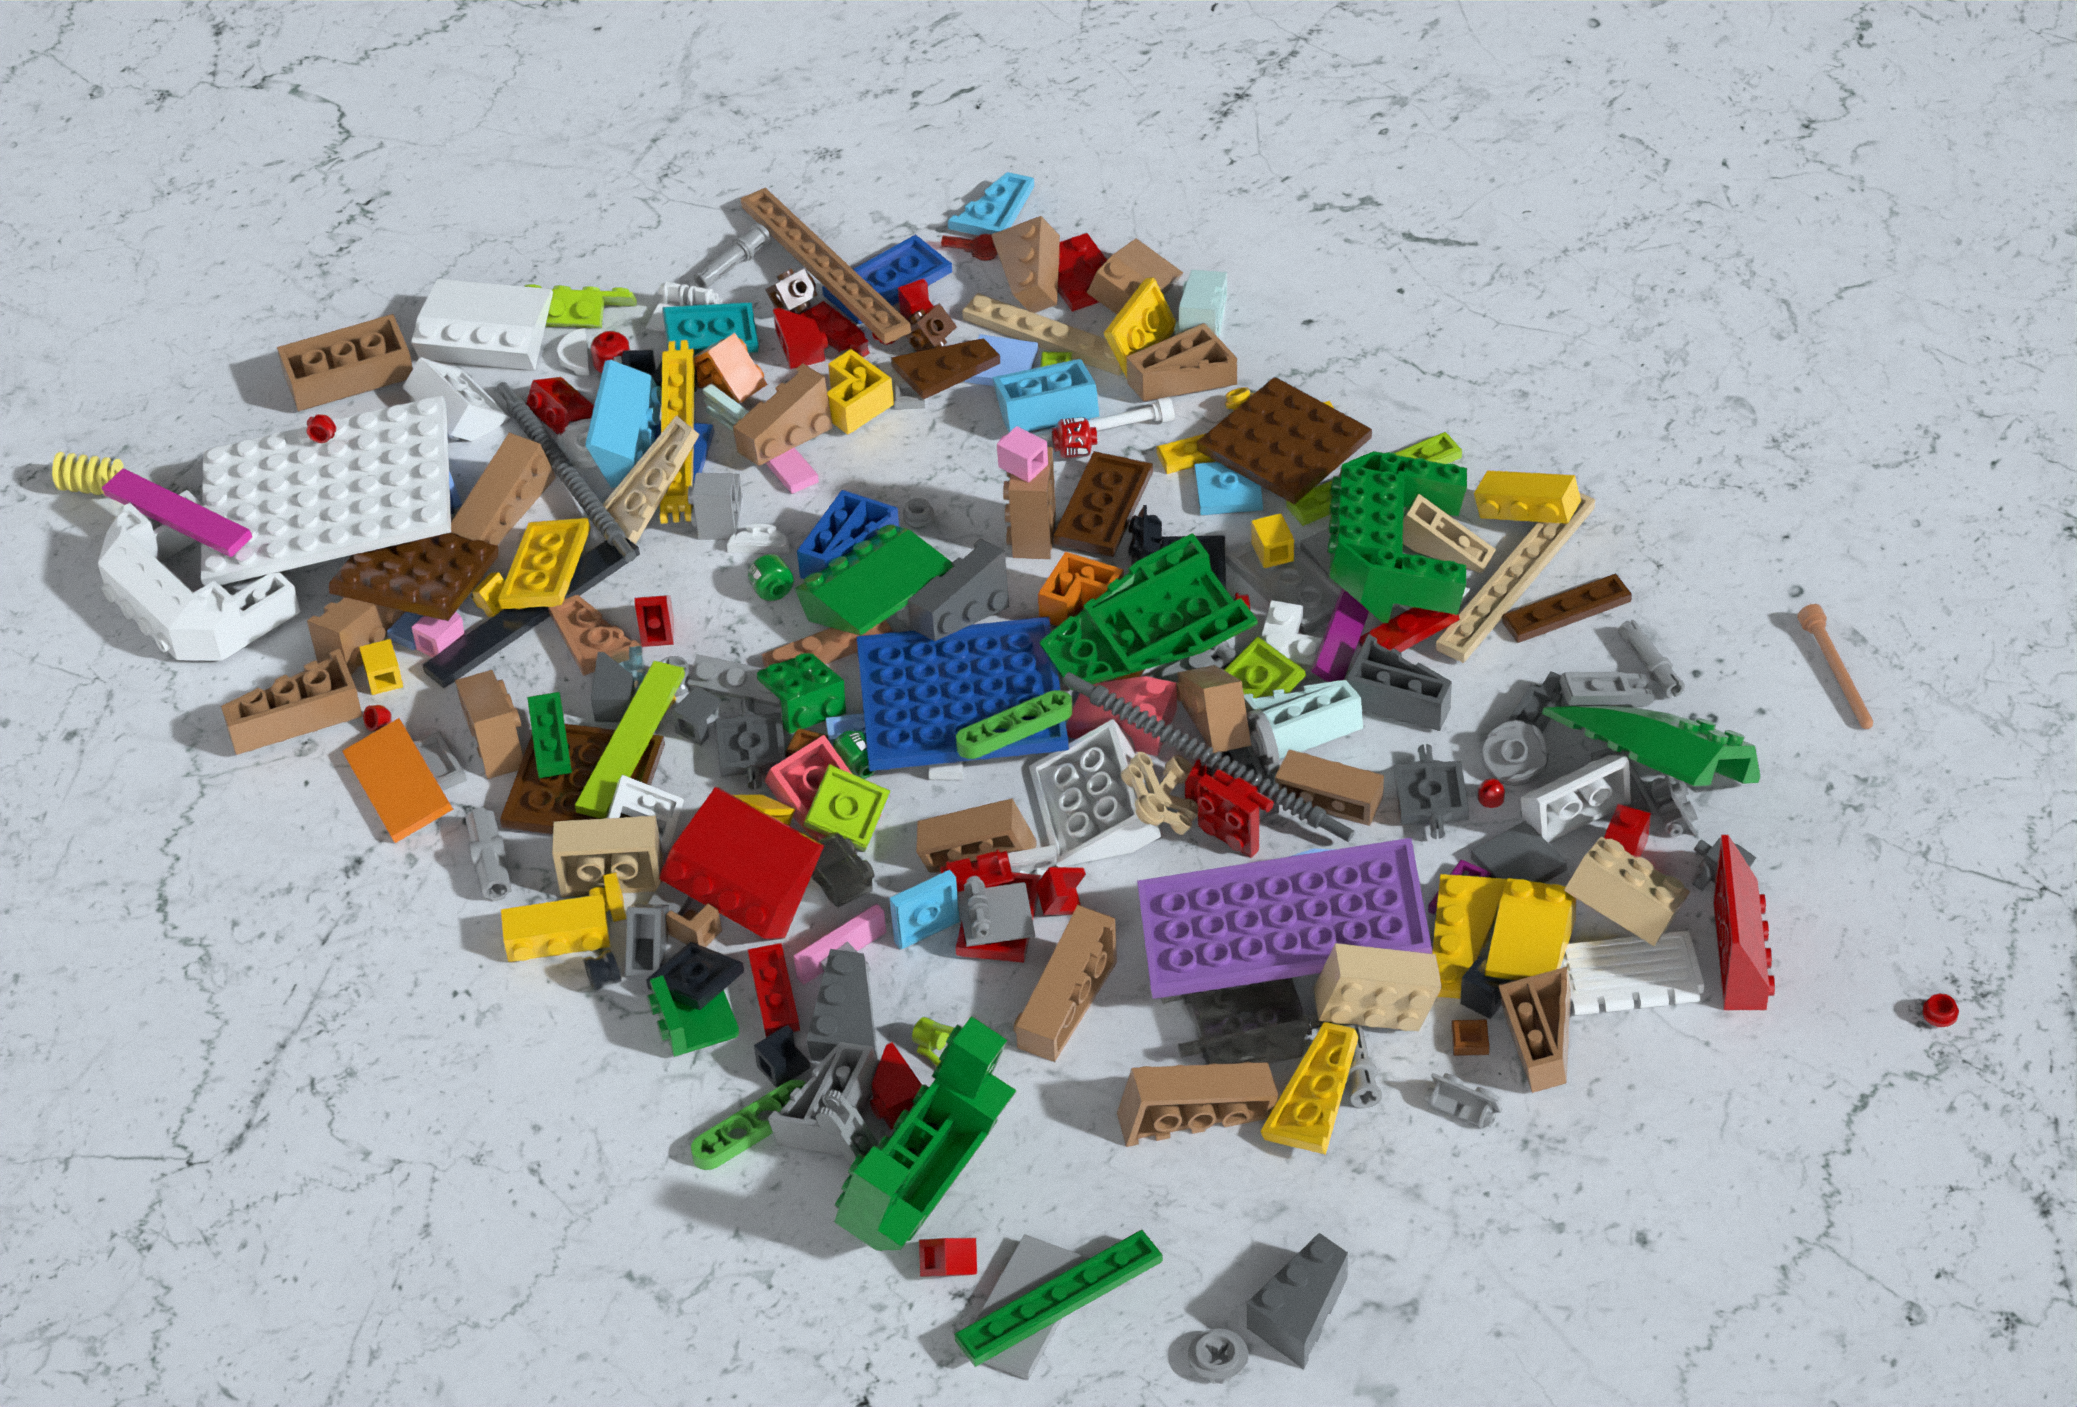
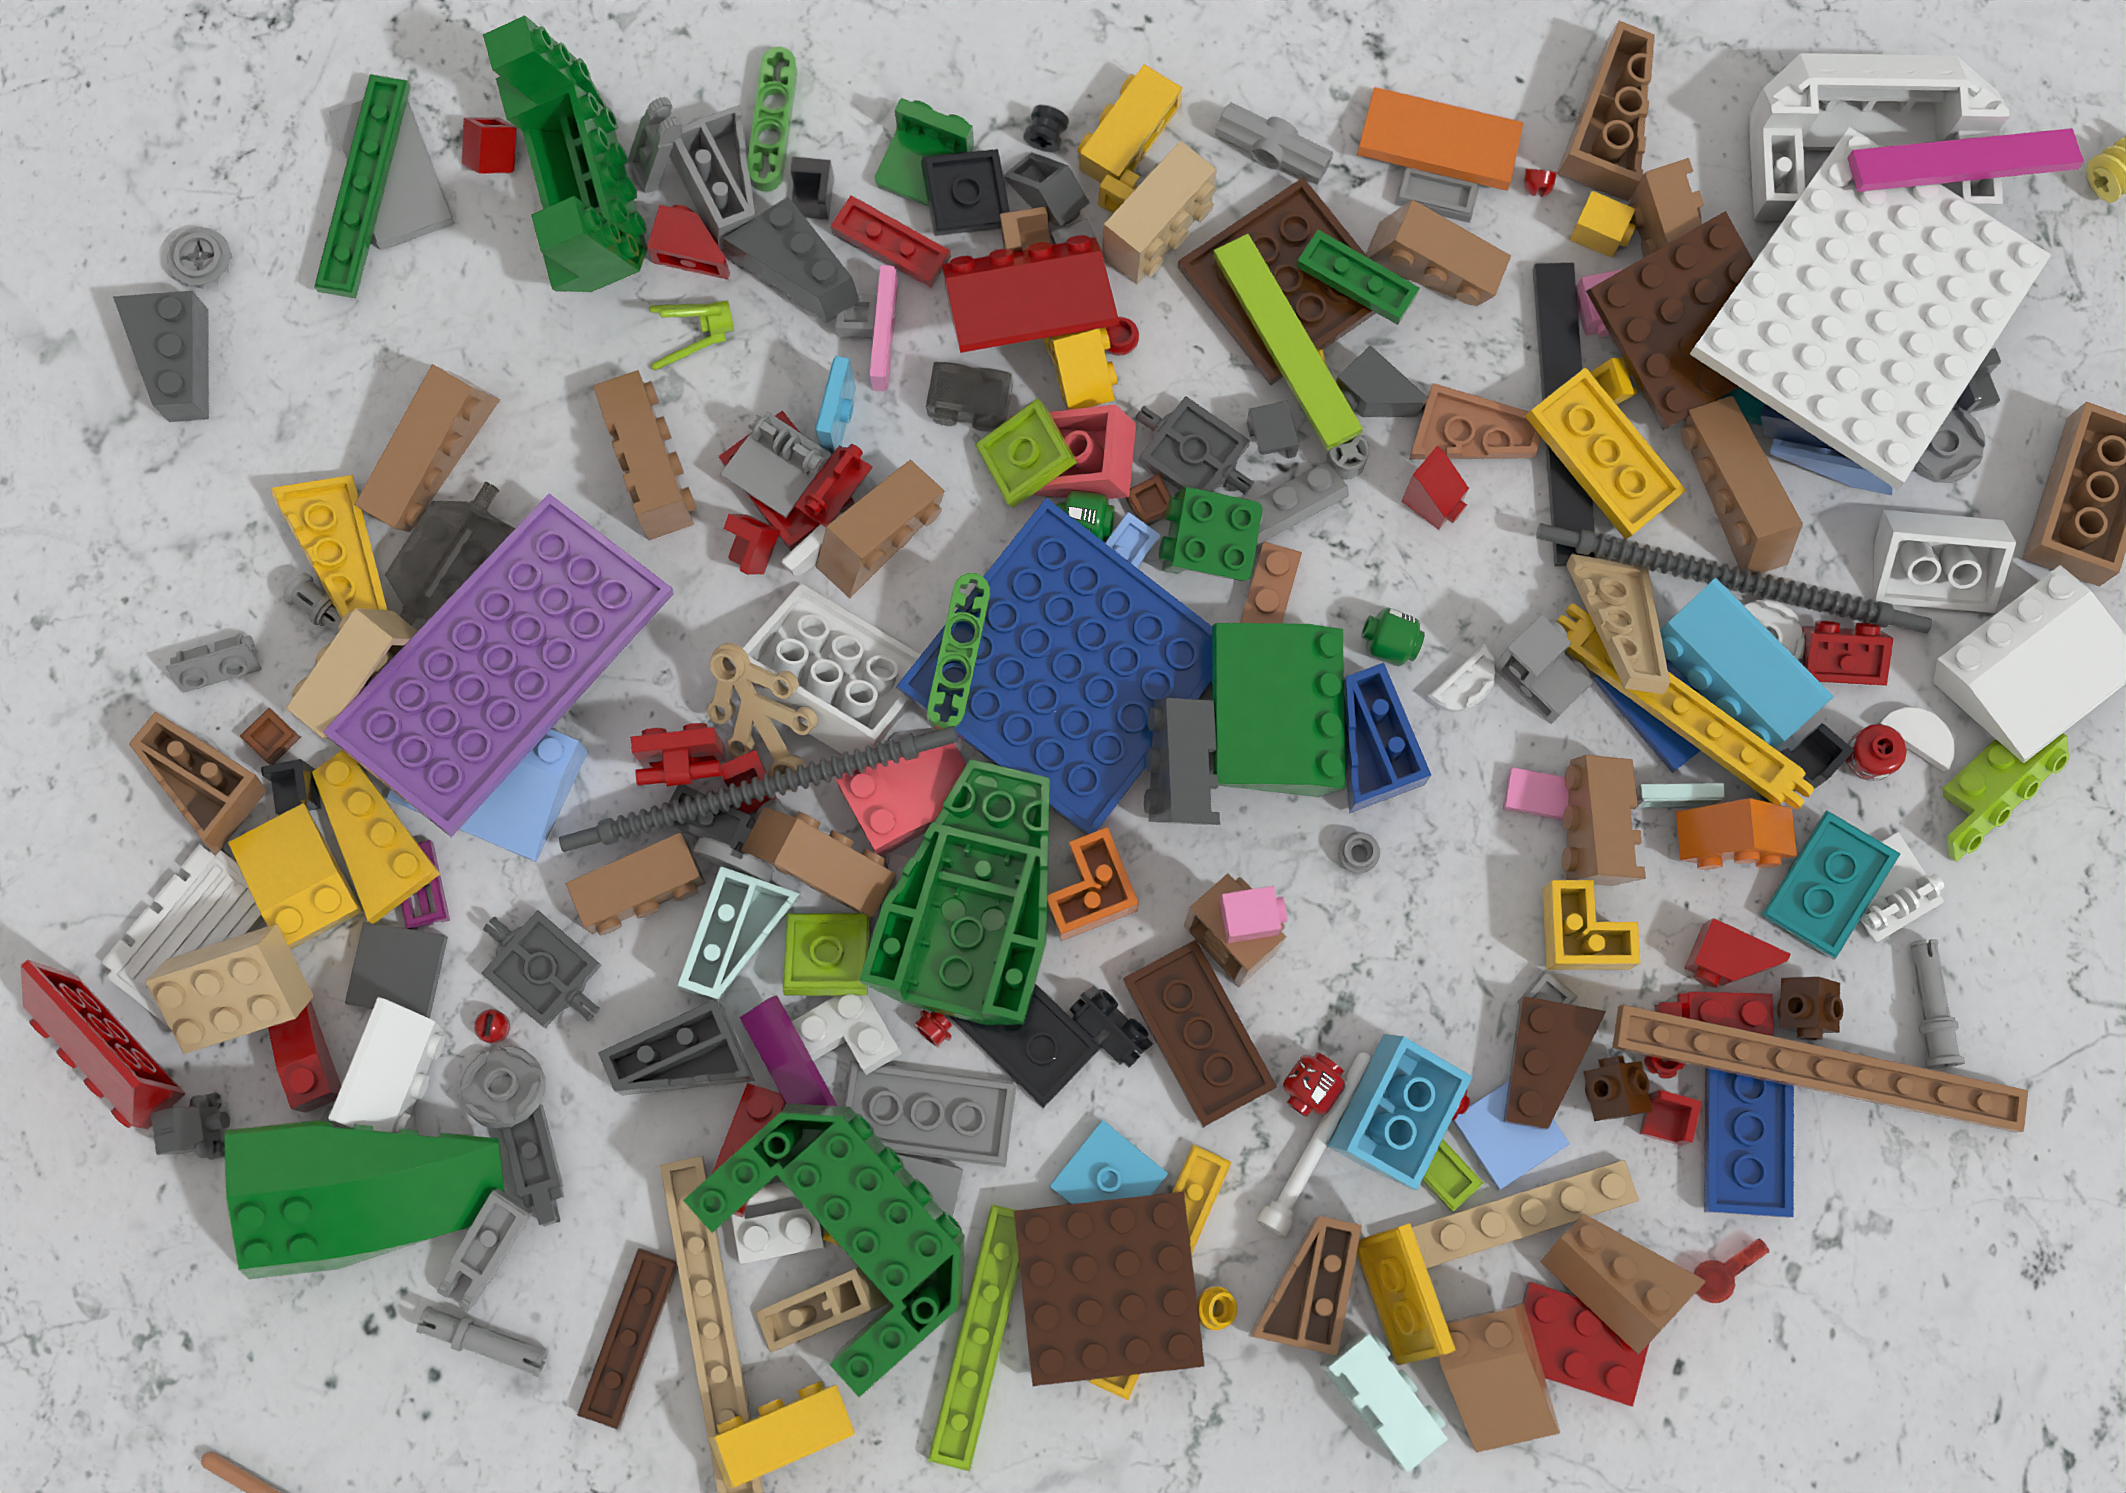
camera: 130 degrees right, 30 degrees up
(321, 428) = (1955, 338): red plate -> none
(636, 665) = (1385, 428): clear light blue plate -> none
(644, 800) = (1193, 293): white plate -> none
(996, 208) = (1765, 1347): medium azure wing -> none
(1272, 540) = (975, 1127): yellow brick -> none

